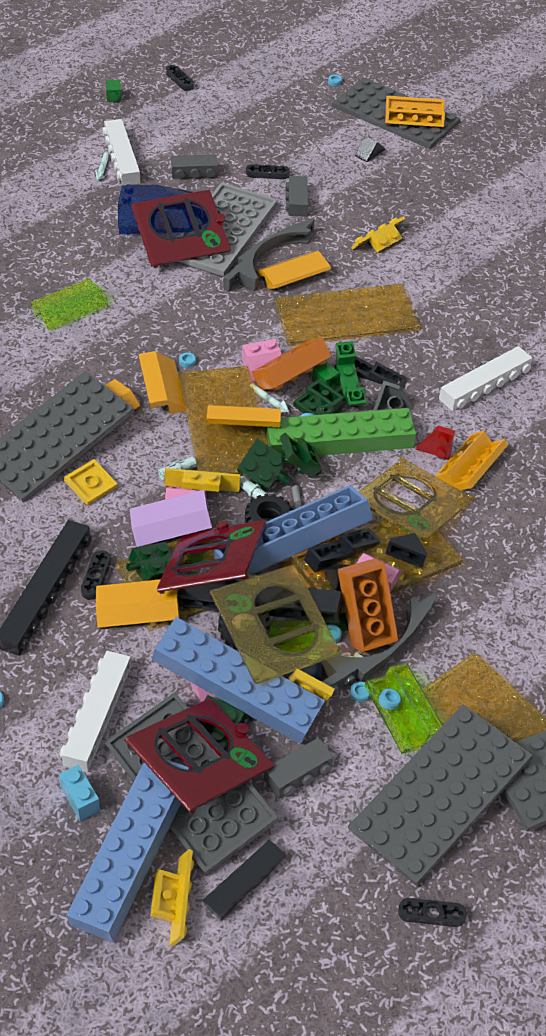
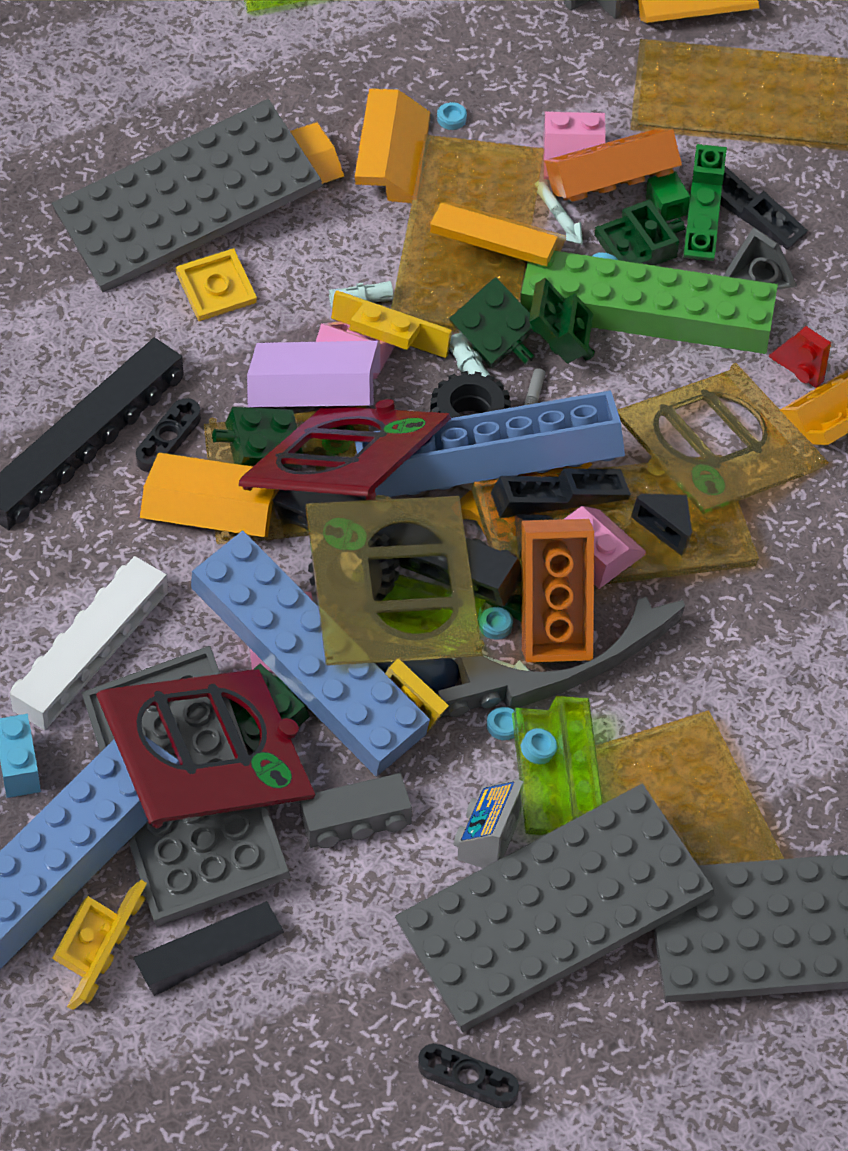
camera: 20 degrees right, 5 degrees up
(382, 753) = (490, 823): none -> light grey slope

